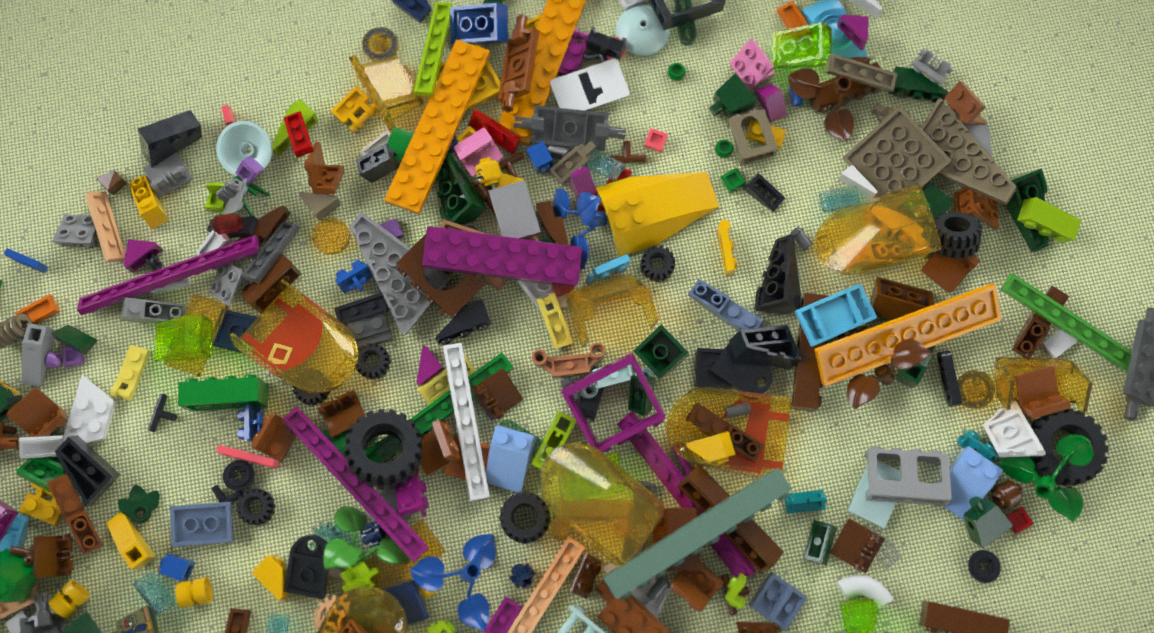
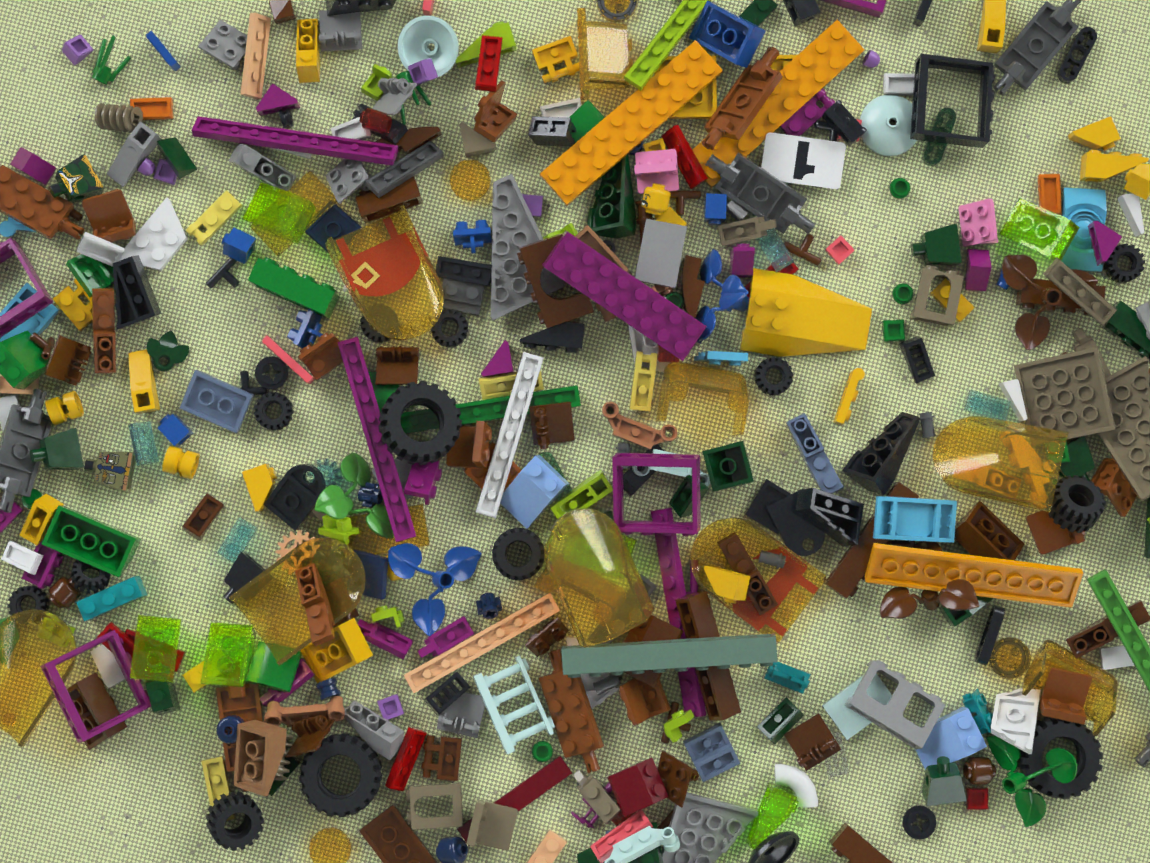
camera: 20 degrees right, 10 degrees up
(160, 383) = (238, 245): none -> blue brick
(885, 31) = (1136, 267): none -> black tyre

